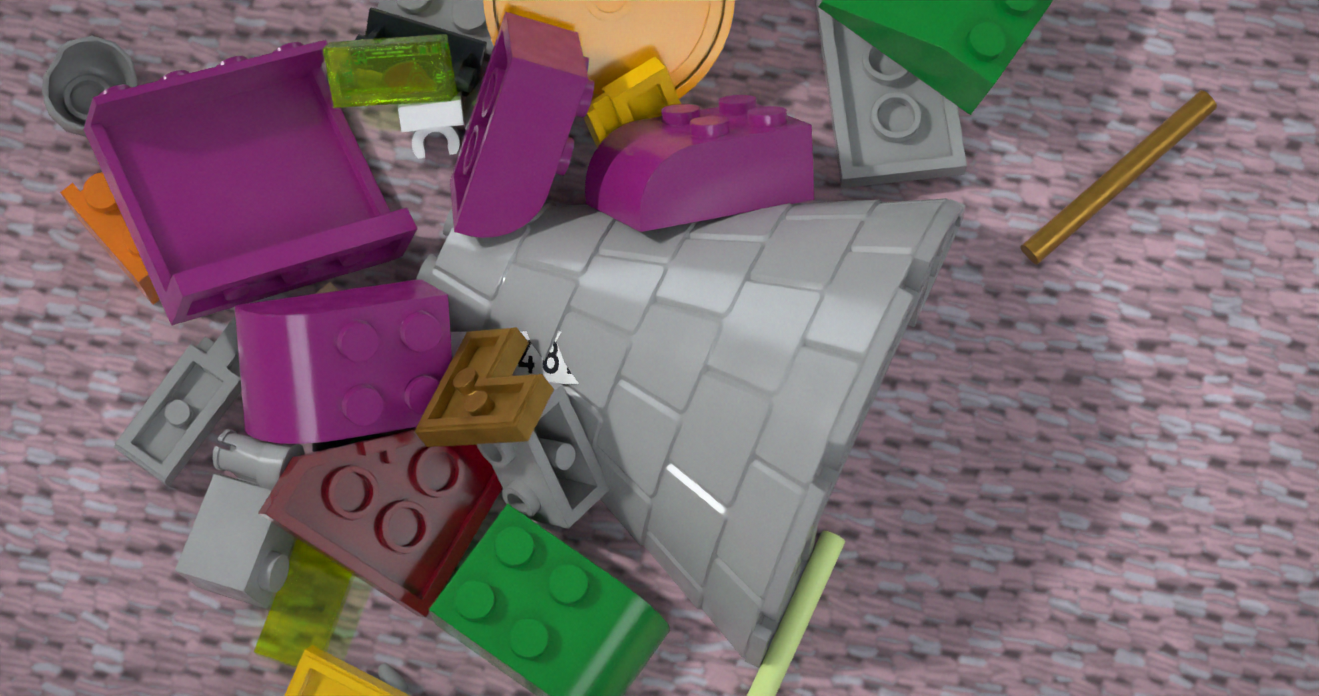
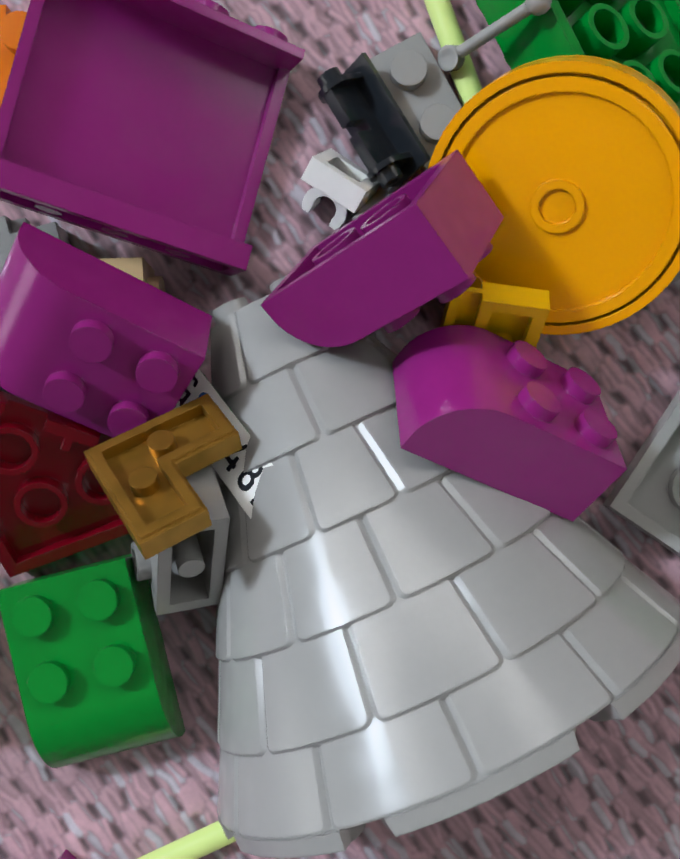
camera: 35 degrees right, 15 degrees up
(390, 71) = (333, 119): clear neon green tile -> none

